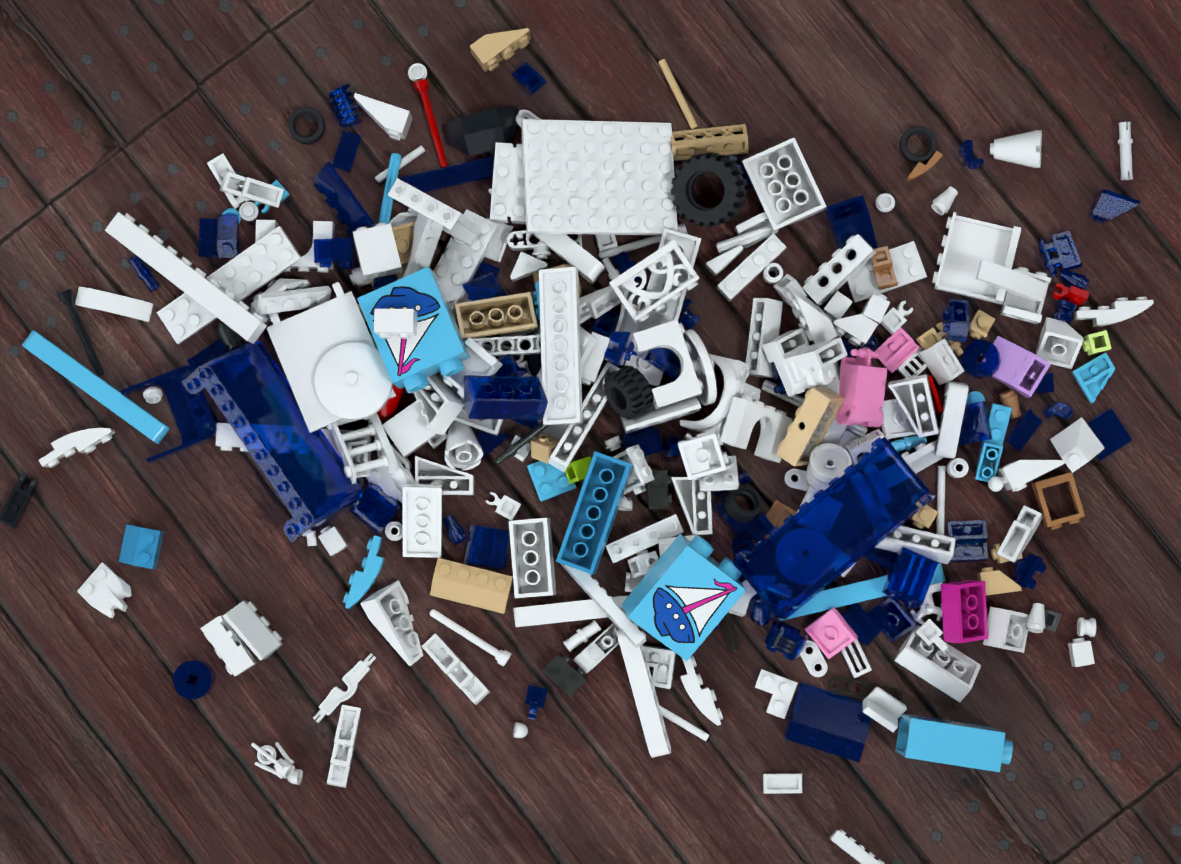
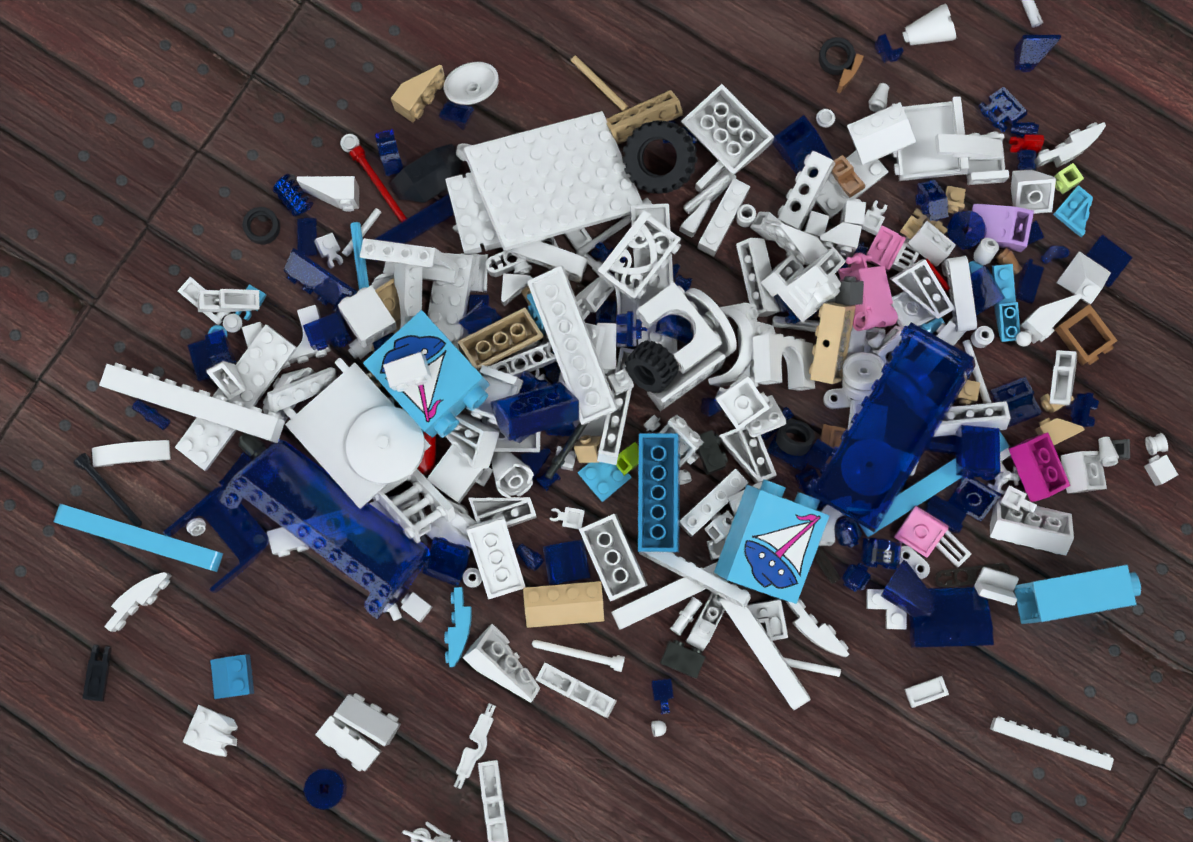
camera: 25 degrees left, 5 degrees down
(226, 267) = (227, 379): none -> white slope
(363, 168) = (329, 247): none -> white plate
(451, 94) = (389, 152): none -> clear blue brick
(493, 466) = (545, 482): none -> clear blue bush
(553, 54) = (471, 83): none -> white dish
(595, 395) = (620, 381): none -> white tile
(649, 440) = (684, 408): clear blue brick -> none
(754, 654) = (856, 577): none -> clear blue head
(797, 686) = (909, 592): none -> clear blue slope
(843, 384) = (850, 291): none -> dark grey brick
(853, 435) = (875, 339): none -> white plate
(931, 239) = (881, 133): none -> white slope
(991, 387) = (986, 251): none -> white brick

